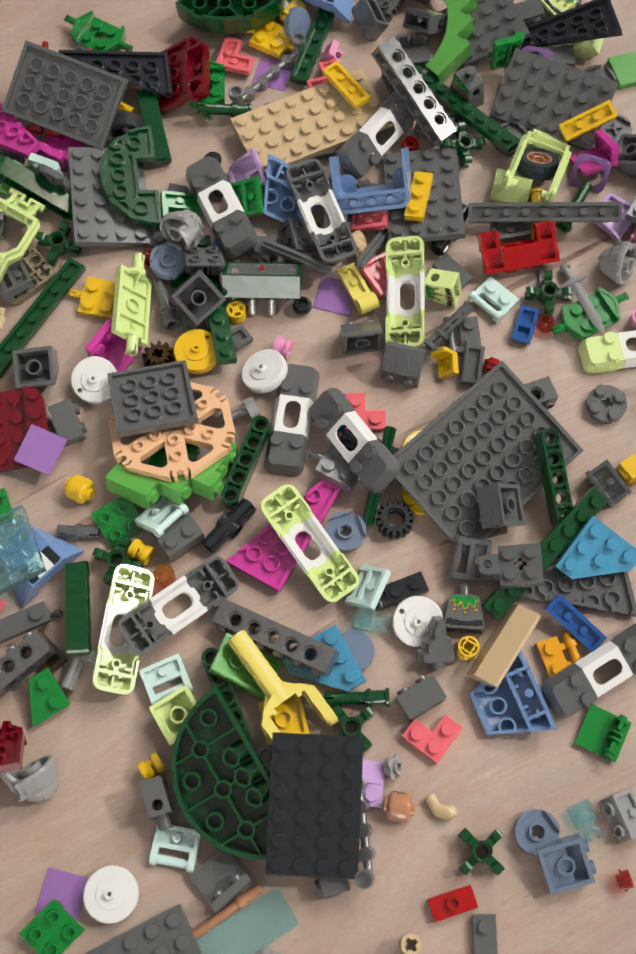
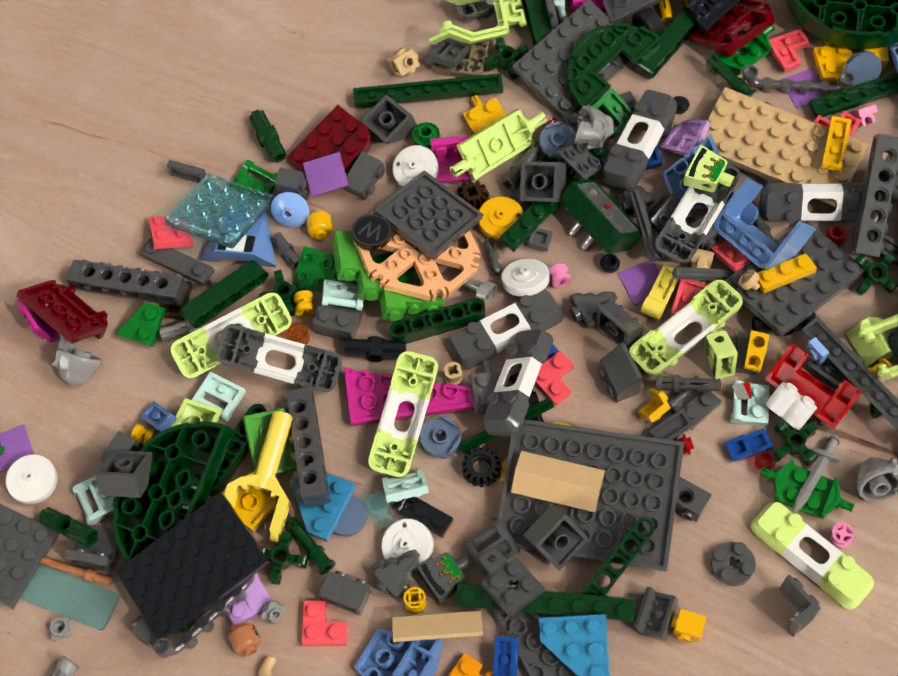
camera: 55 degrees right, 5 degrees down
(28, 484) = (291, 181): none -> dark grey brick
(41, 496) = (290, 202): none -> light blue dish
(72, 350) = (424, 133): none -> green plate
(134, 449) = (371, 232): none -> tile
(146, 742) = (158, 417): none -> medium blue plate
(173, 895) = (68, 527): none -> dark green piece
(187, 804) = (124, 474): none -> dark grey slope
(214, 377) = (492, 256): none -> dark grey piece
(233, 308) = (563, 218): yellow wheel -> none
(250, 195) = (666, 152): green wing -> none
(300, 178) = (707, 171): none -> yellowish green torso
(304, 478) = (452, 368): none -> tan bush
(327, 345) = (586, 306): none -> dark grey rock
(407, 221) = (749, 280): none -> tan tile
(459, 471) = (557, 481): none -> tan slope
(461, 262) = (756, 351): none -> yellow leg
(482, 296) = (742, 391): none -> light grey sticker
(495, 223) = (817, 351): none -> light blue plate
(522, 272) = (791, 405): none -> white brick

